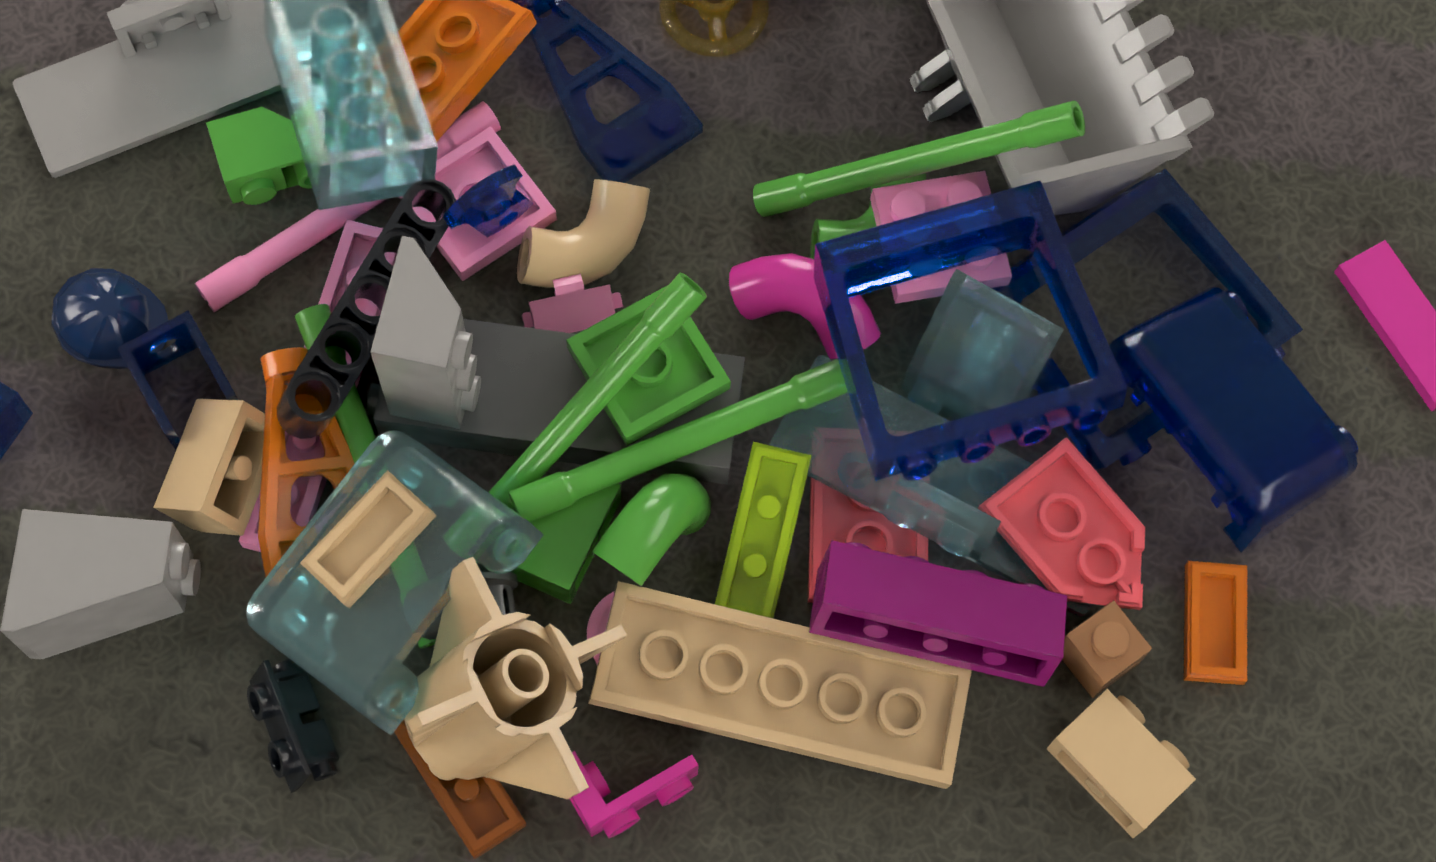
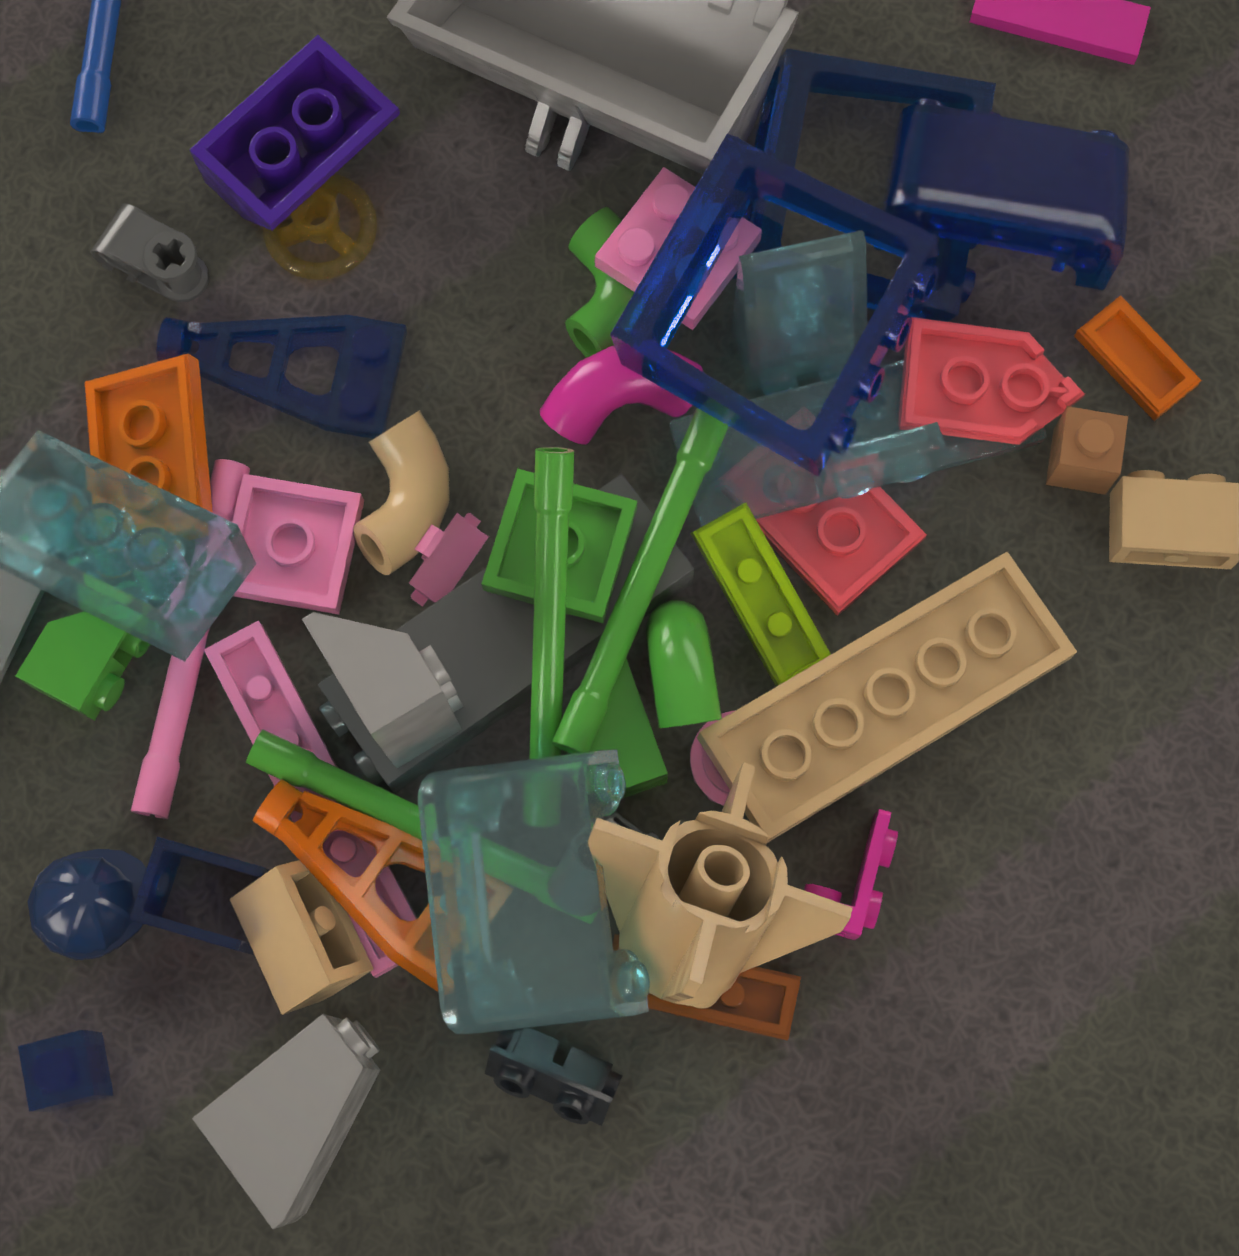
camera: 35 degrees left, 5 degrees up
(348, 325) = (299, 730): black beam -> none
(368, 539) = (496, 881): tan tile -> none
(491, 203) = (314, 531): clear blue piece -> none
(939, 613) = (951, 533): magenta brick -> none
(1029, 130) = (687, 101): bright green piece -> none

